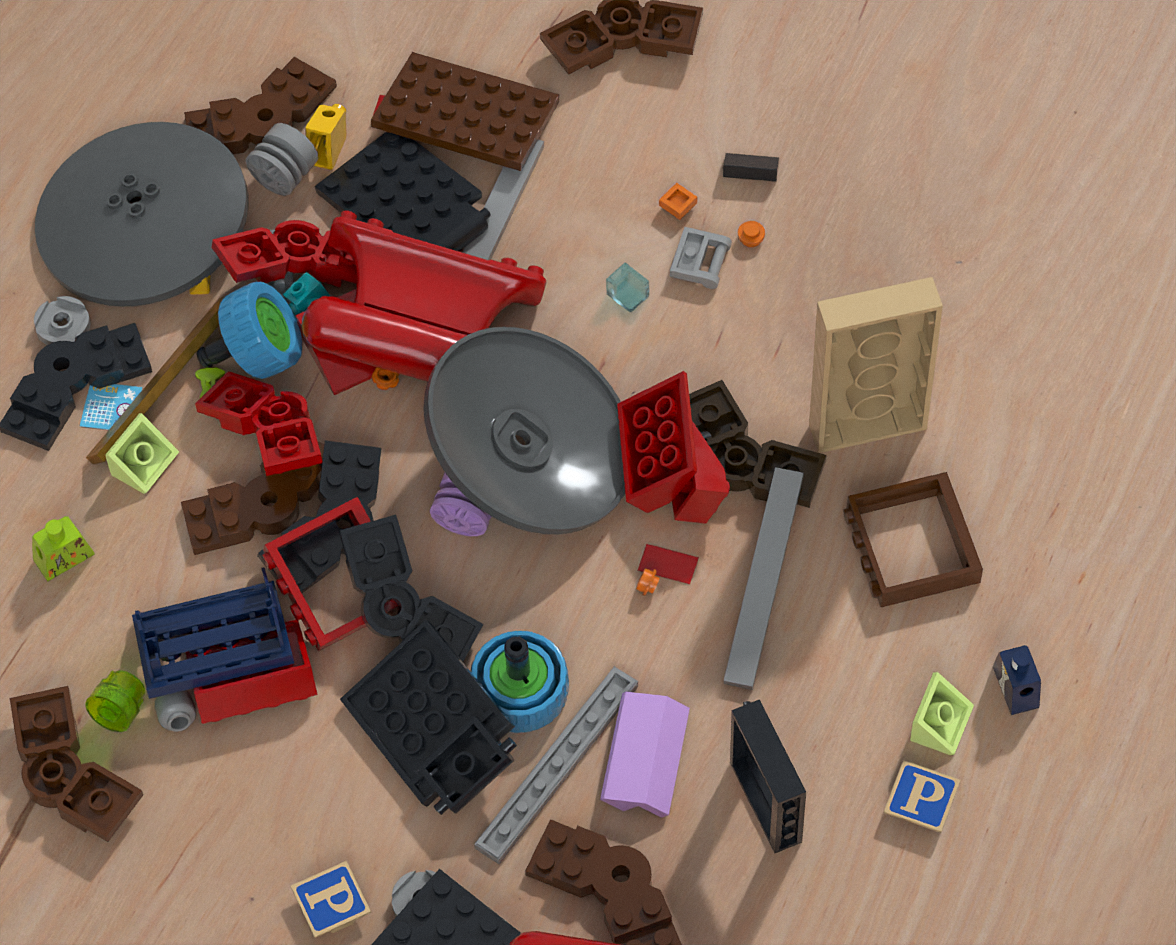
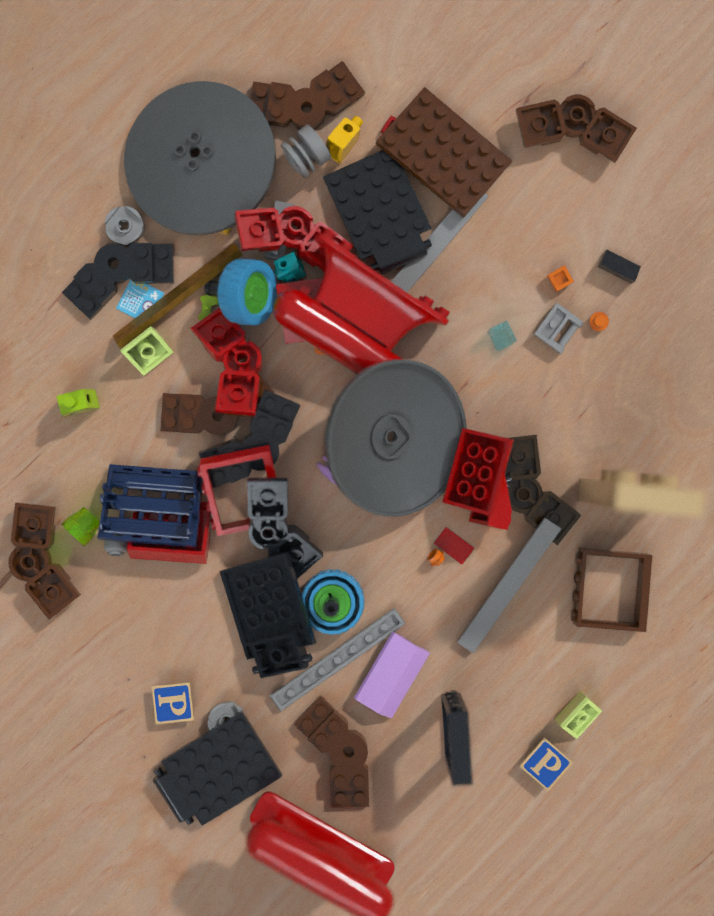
camera: 15 degrees right, 30 degrees up
(1015, 673) = (636, 711): dark blue torso -> none

